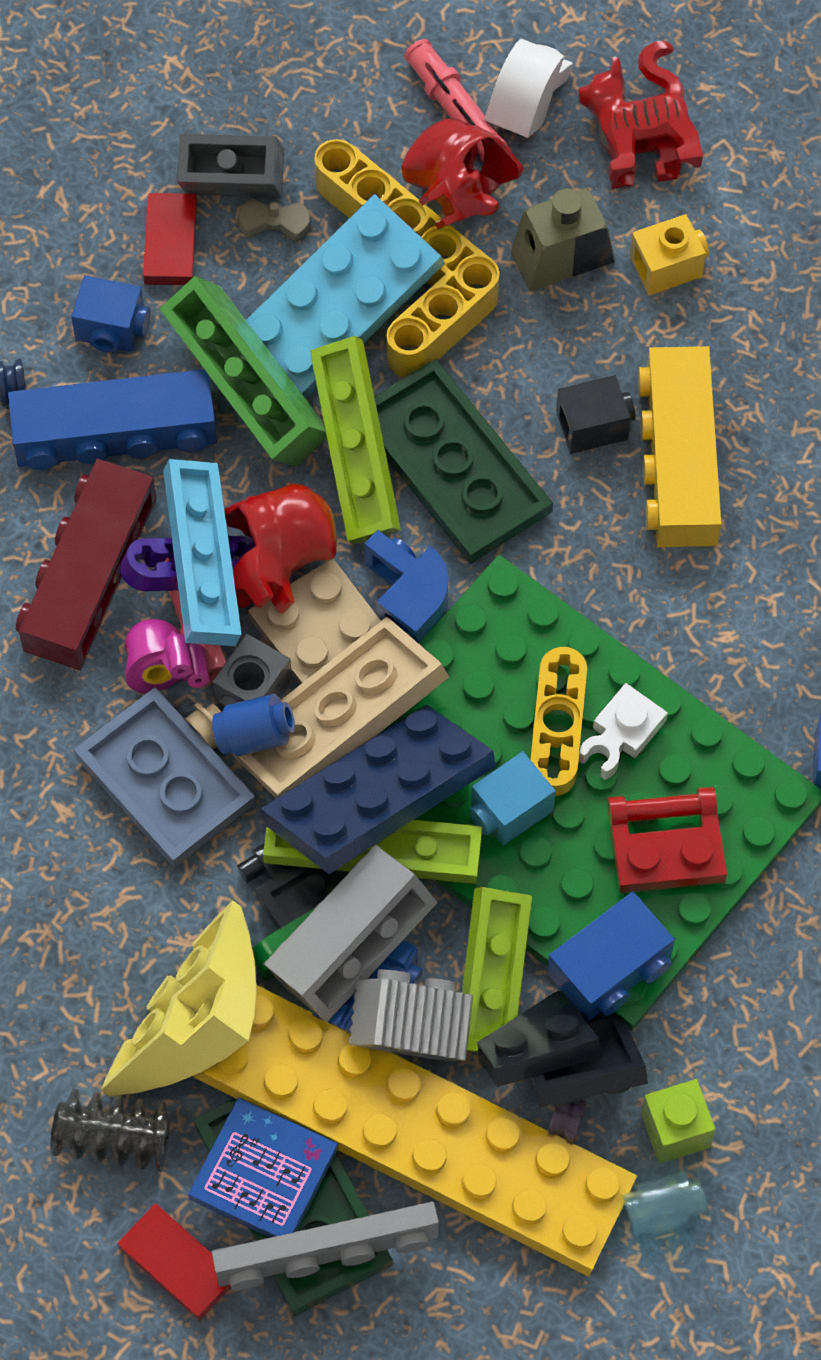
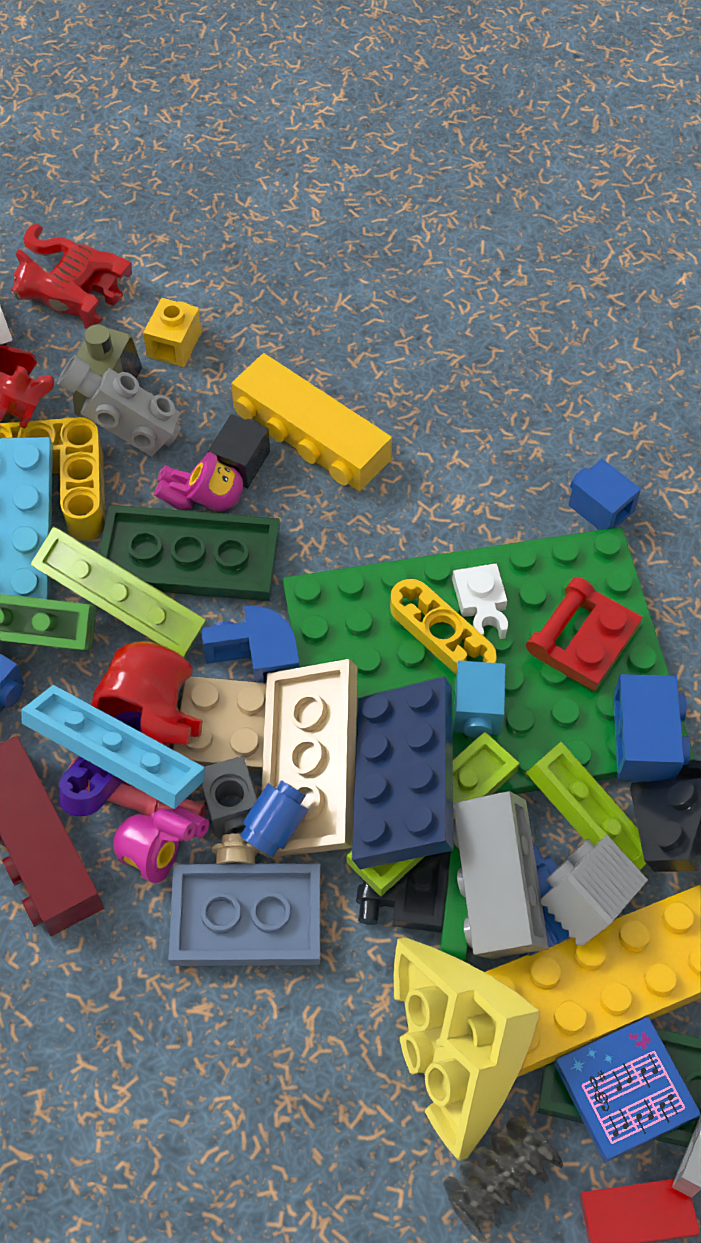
camera: 50 degrees left, 5 degrees down
(531, 295) = (123, 406): none -> light grey brick
(532, 420) = (208, 484): none -> dark pink piece

